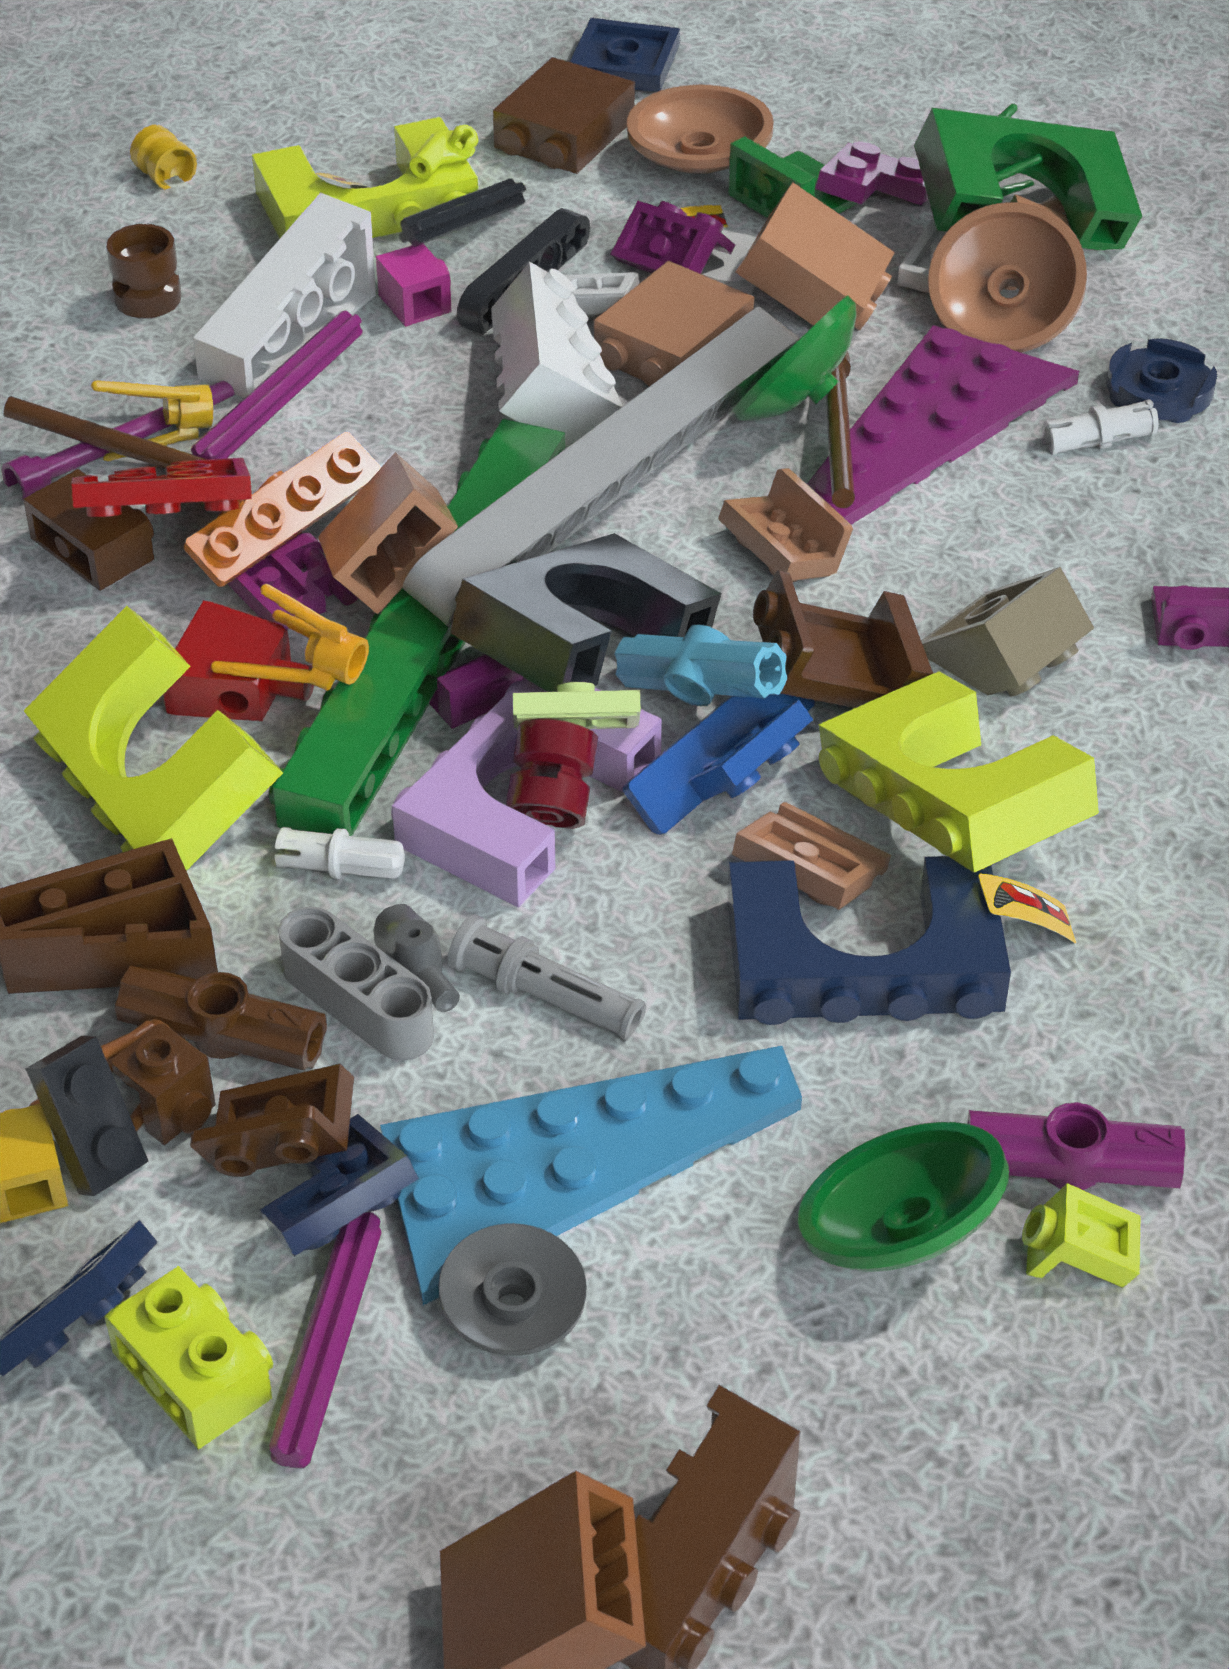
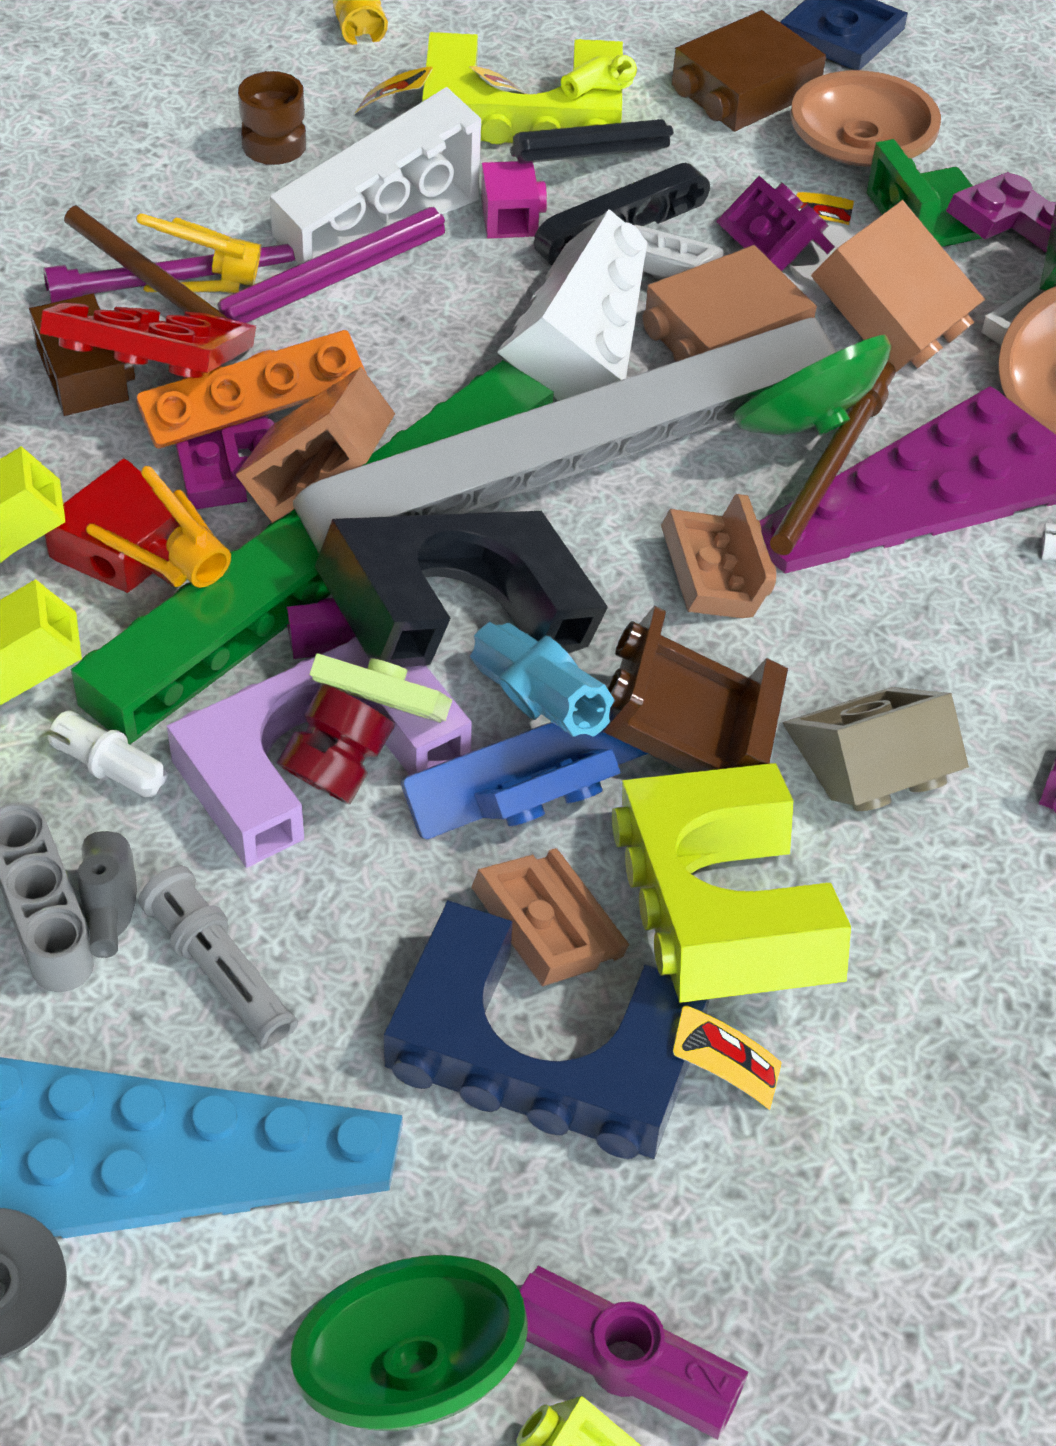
camera: 20 degrees right, 5 degrees up
(241, 212) = (402, 82): none -> sticker

